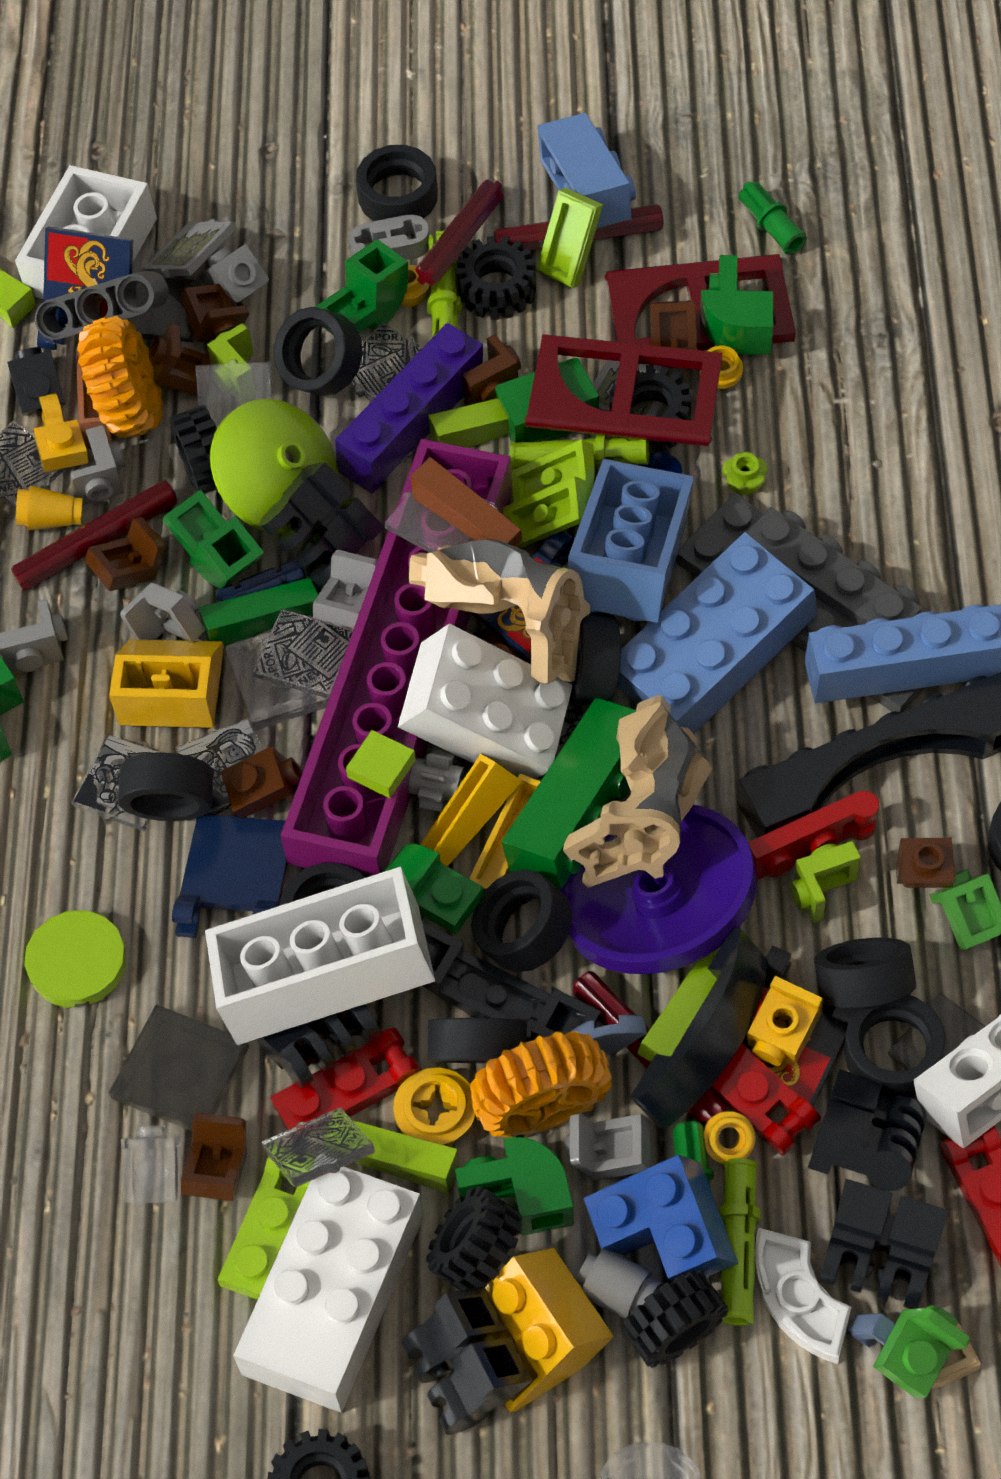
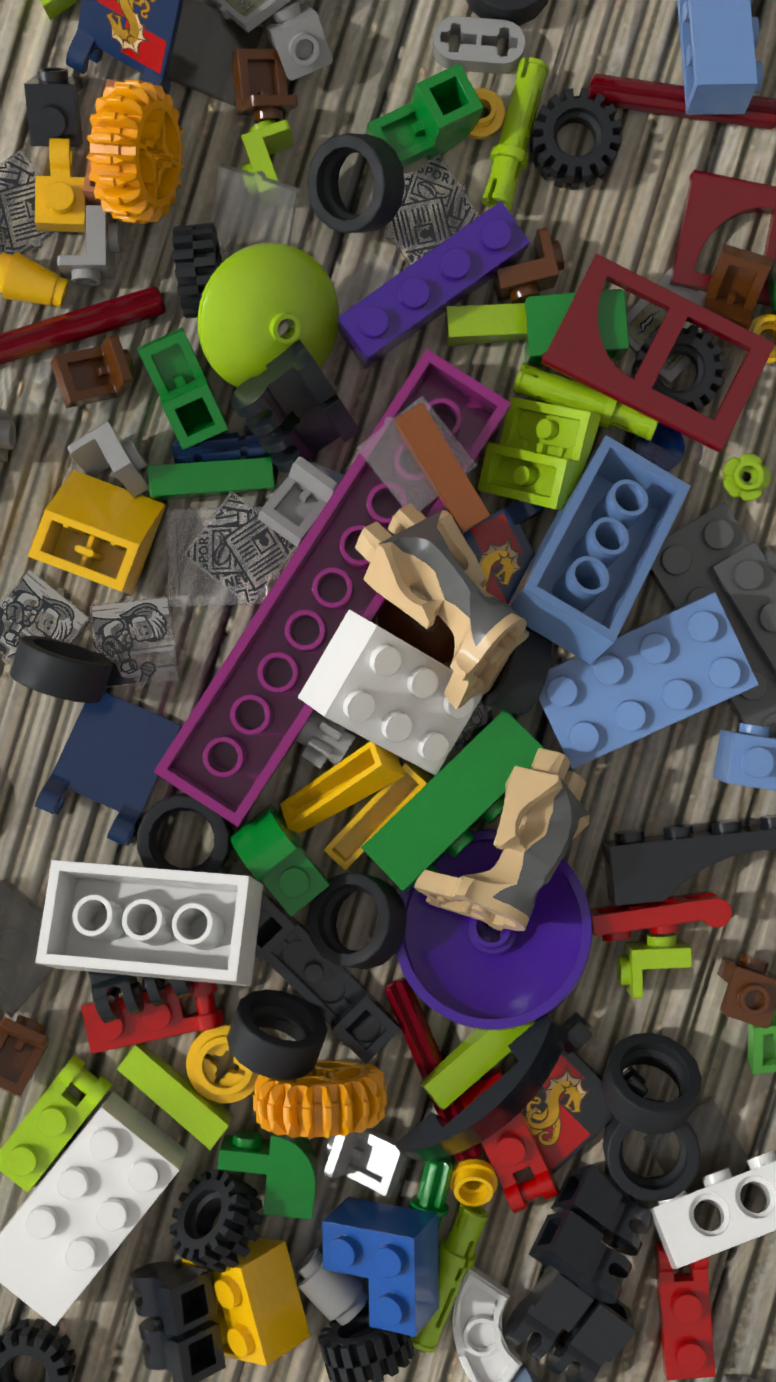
camera: 15 degrees right, 30 degrees up
(82, 309) = (154, 46): dark grey beam -> none
(174, 363) = (205, 143): reddish brown bracket -> none
(261, 781) = (161, 682): reddish brown bracket -> none
(318, 1147) = (102, 1094): clear piece -> none
(380, 764) = (269, 731): lime tile -> none
(459, 233) = (554, 71): dark red axle -> none
(569, 237) = (669, 122): lime tile -> none
(616, 1036) = (399, 1062): sand blue tile -> none
(784, 1044) = (563, 1089): yellow brick -> none

